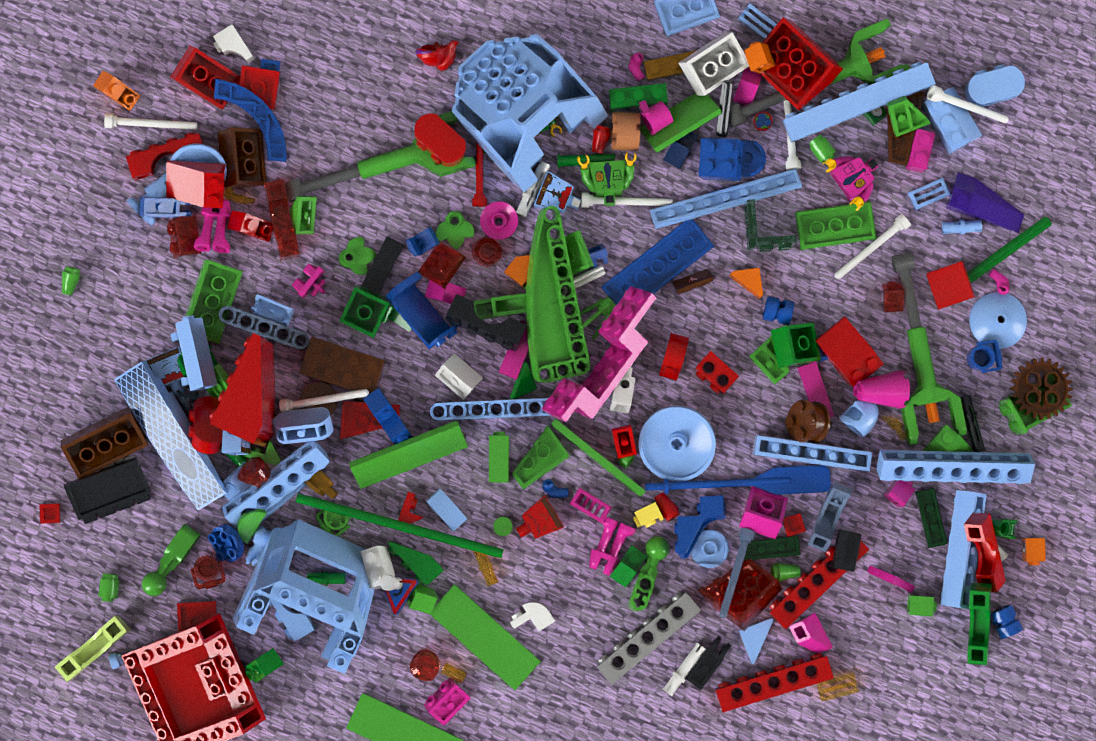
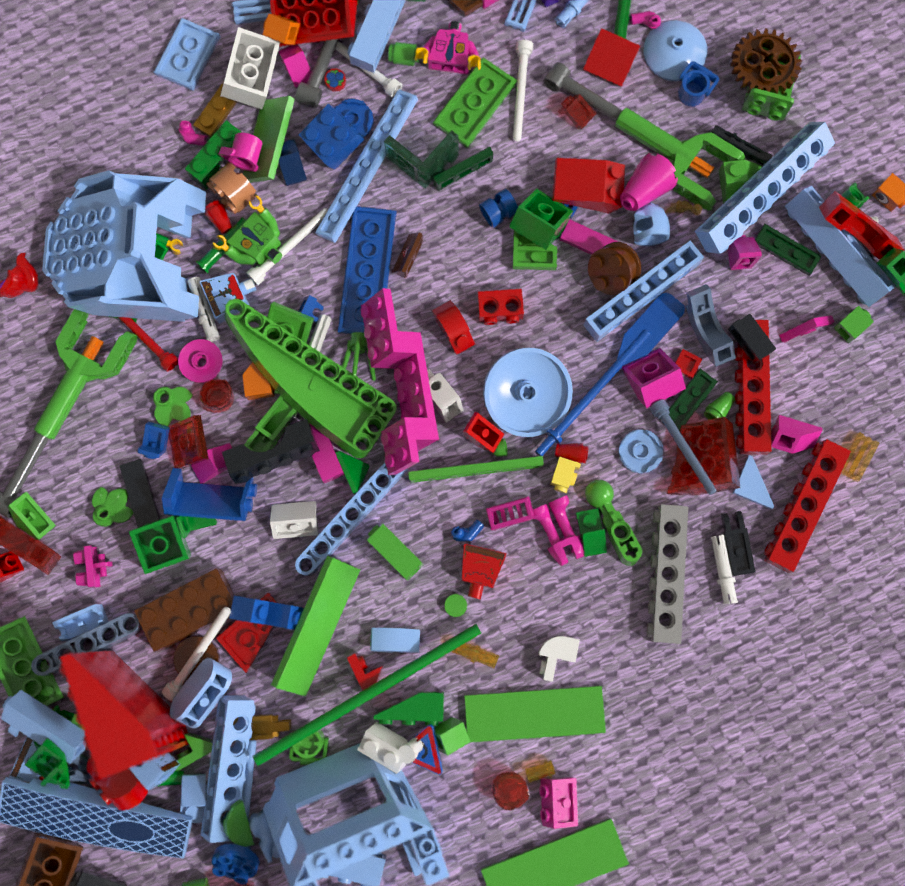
camera: 40 degrees left, 5 degrees down
(178, 378) = (50, 764): none -> green slope
(254, 472) = (197, 776): clear red hair -> none
(327, 578) = (352, 802): green axle -> none
(439, 140) = (83, 342): red brick -> none
(541, 459) = (430, 516): bright green wing -> none
(690, 527) = (609, 448): blue arch -> none
(725, 106) = (290, 89): axle -> none
(750, 280) = (451, 208): orange slope -> none
(782, 262) = (463, 169): none -> dark green tile

